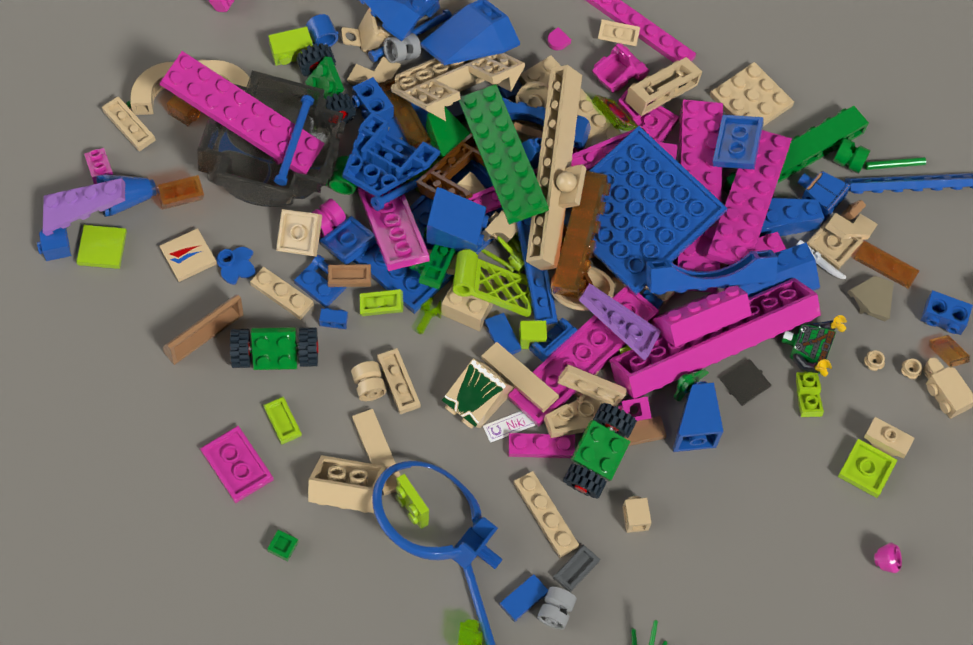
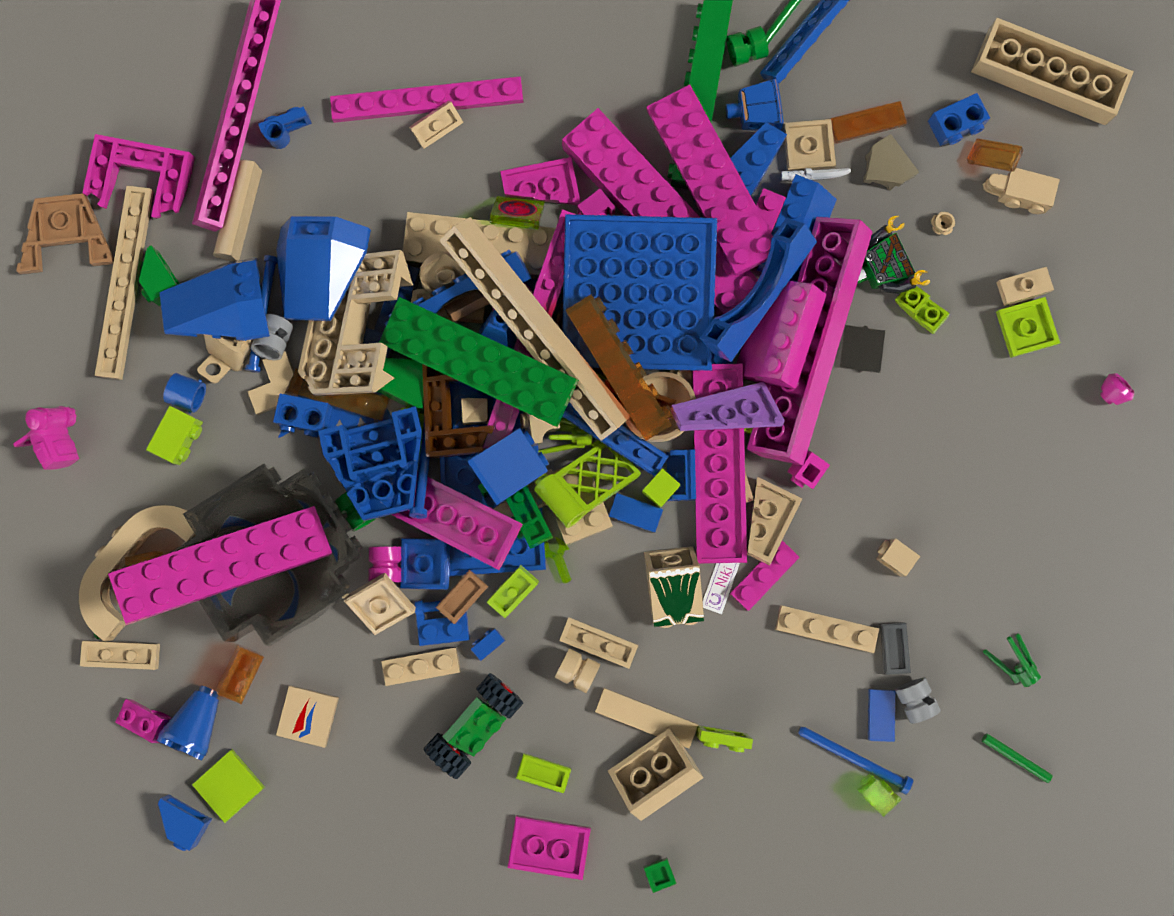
camera: 40 degrees left, 20 degrees up
(78, 203) = (170, 788): medium lavender wing -> none
(204, 330) = (397, 771): medium nougat slope -> none
(238, 266) = (359, 681): blue plate -> none
(281, 179) = (294, 542): blue bar -> none
(320, 69) = (246, 443): plate -> none
(470, 544) = (803, 718): blue brick -> none
(520, 377) = (692, 539): tan tile -> none
(558, 39) = (391, 184): dark pink tile -> none
(571, 185) = (571, 335): tan tile -> none
(592, 385) = (758, 488): tan plate -> none
(600, 450) = (823, 539): plate -> none
(618, 68) = (473, 160): dark pink piece -> none
(647, 431) = (830, 481): medium nougat tile -> none
(666, 84) = (530, 106): tan brick -> none
(686, 381) = (829, 403): green plate -> none
(700, 420) = (867, 427): blue slope -> none
(738, 142) = (654, 137): blue plate -> none
(752, 94) = (609, 73): tan plate -> none
(853, 210) = (797, 100): medium nougat tile -> none
(861, 228) = (810, 125): tan tile -> none
(915, 365) = (983, 198): tan plate -> none

